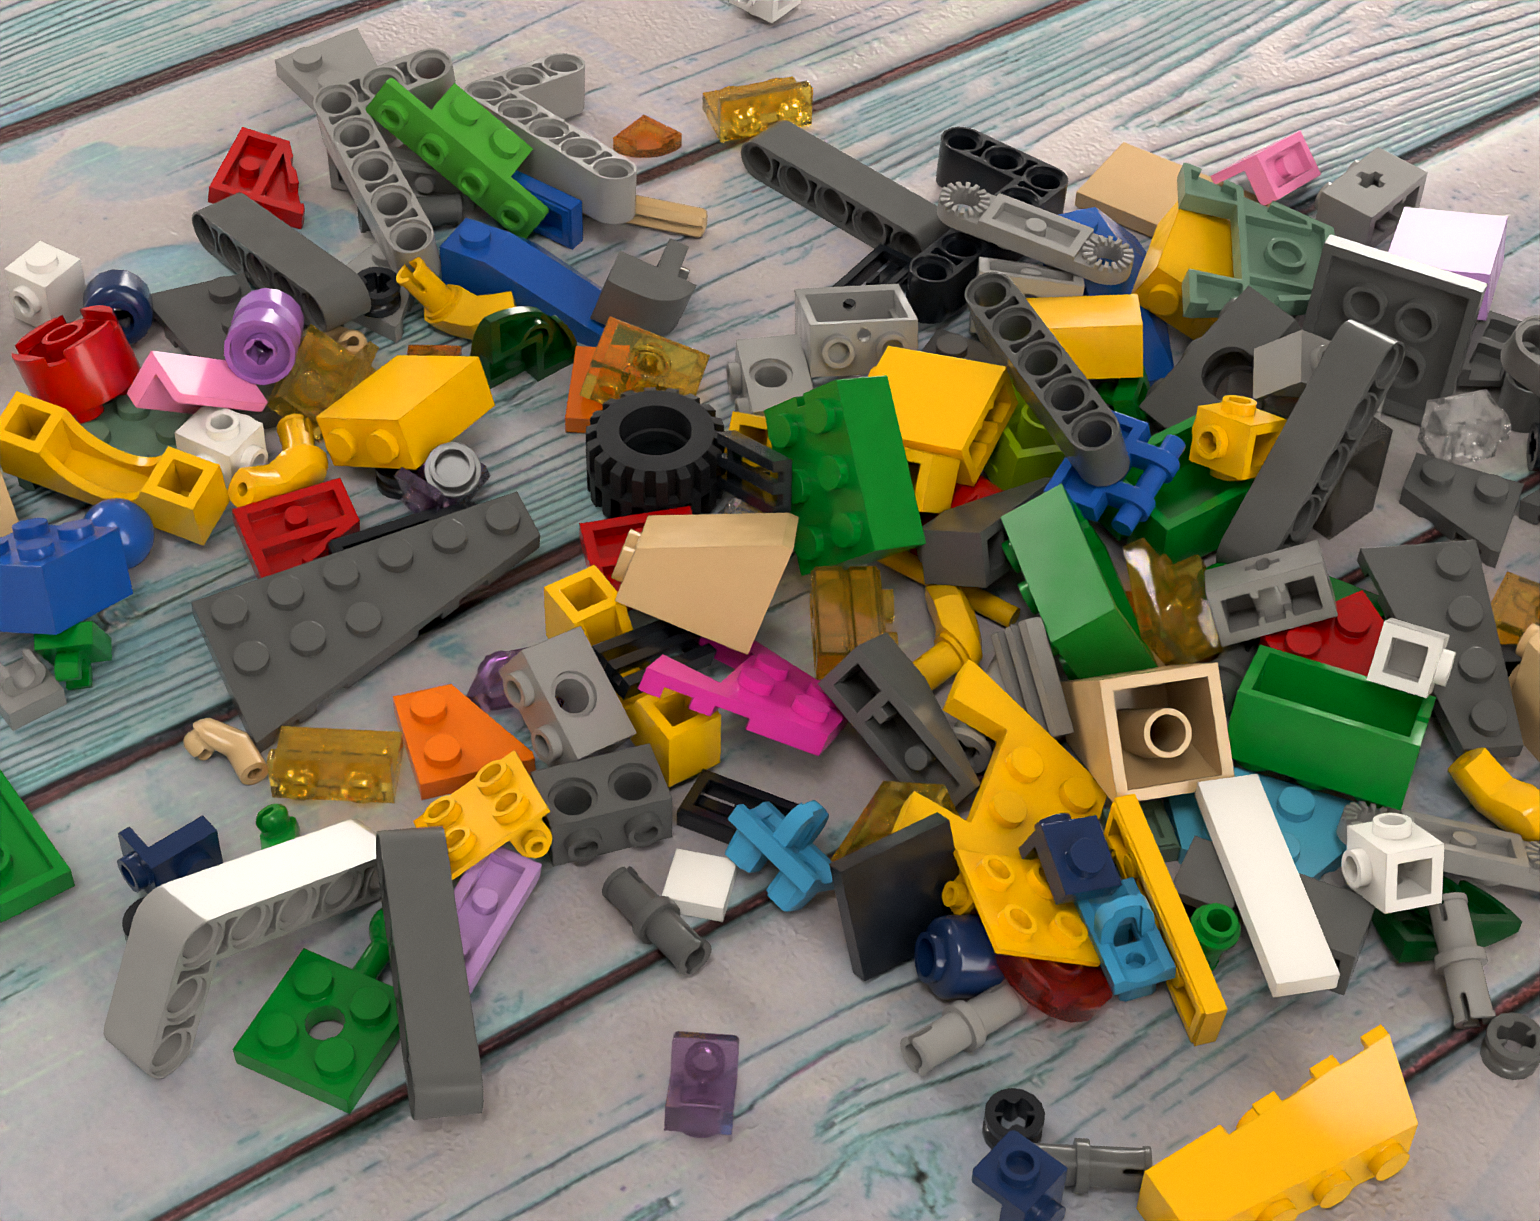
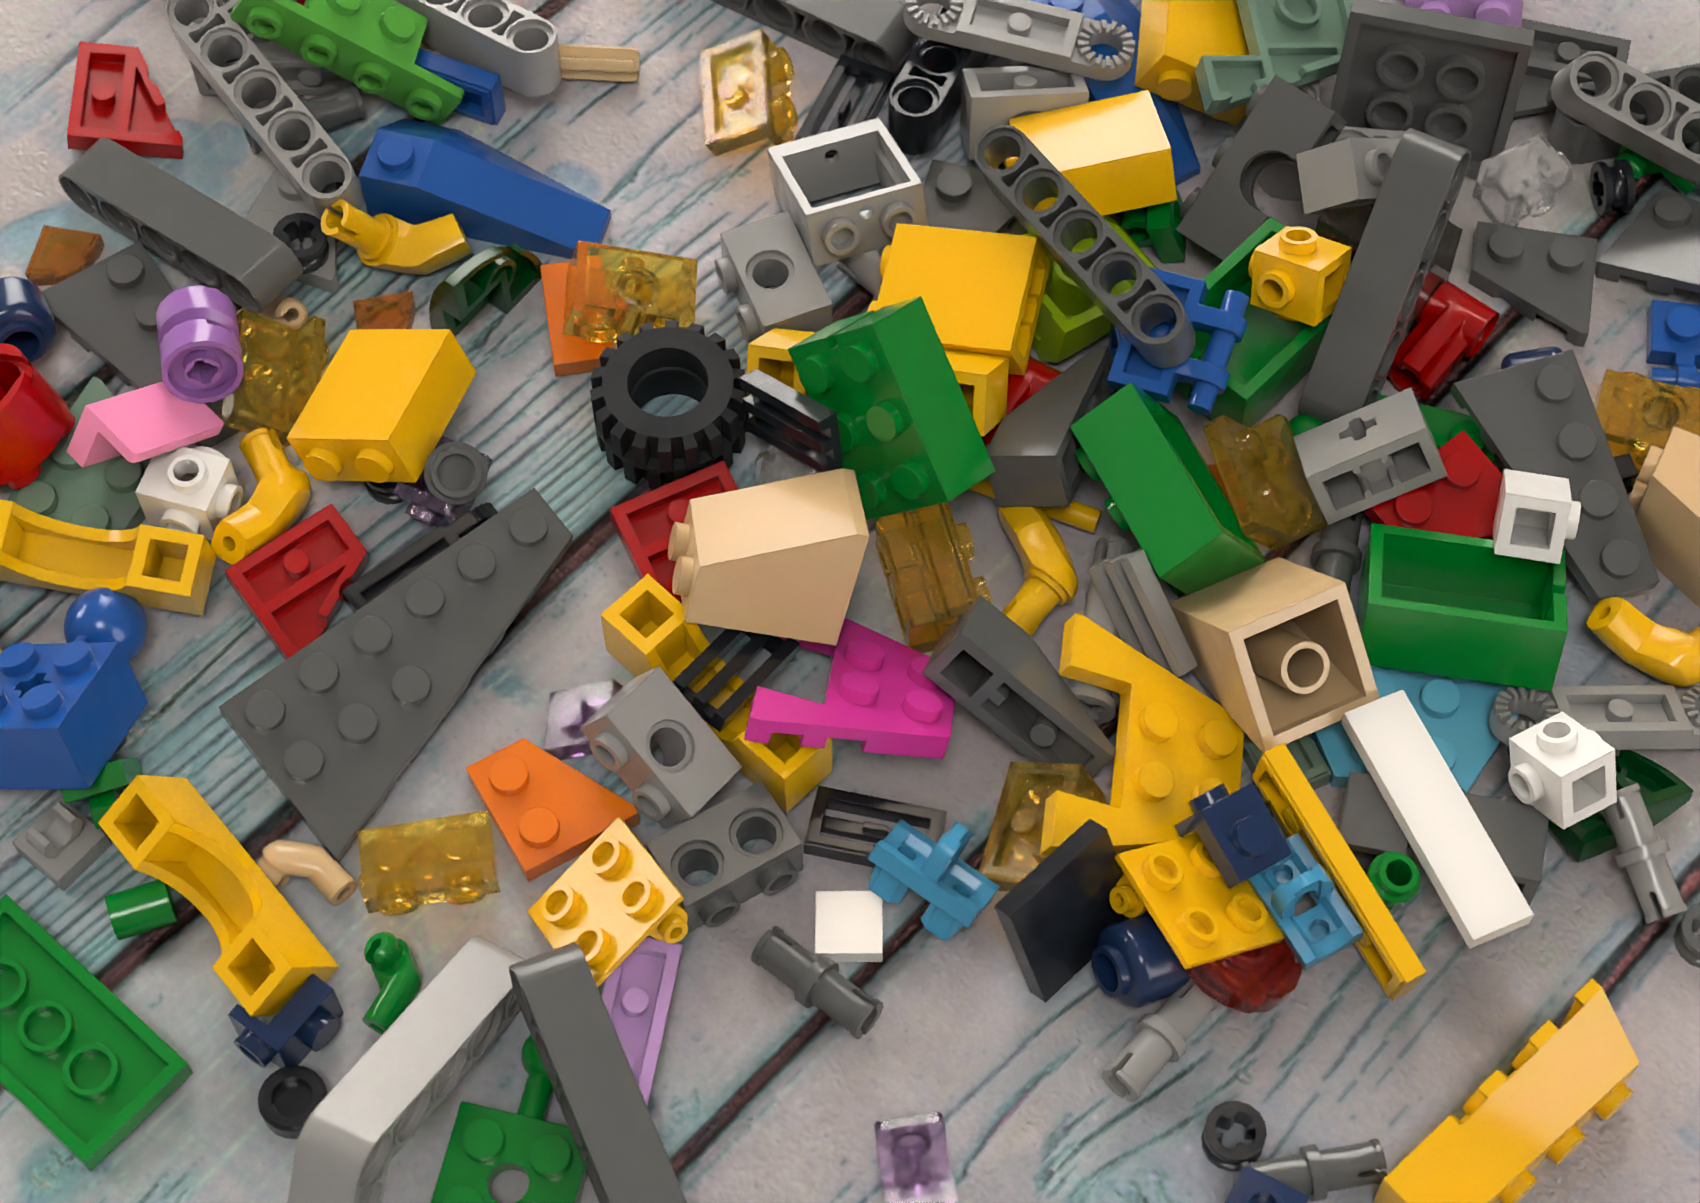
camera: 10 degrees left, 15 degrees up
(73, 750) = (141, 909): none -> green hinge
(128, 704) = (180, 840): none -> yellow arch
(176, 271) = (62, 254): none -> clear orange tile
(647, 293) = (601, 189): dark grey brick -> none
(790, 254) = (746, 93): none -> clear yellow bracket
(1368, 522) = (1447, 330): none -> red piece

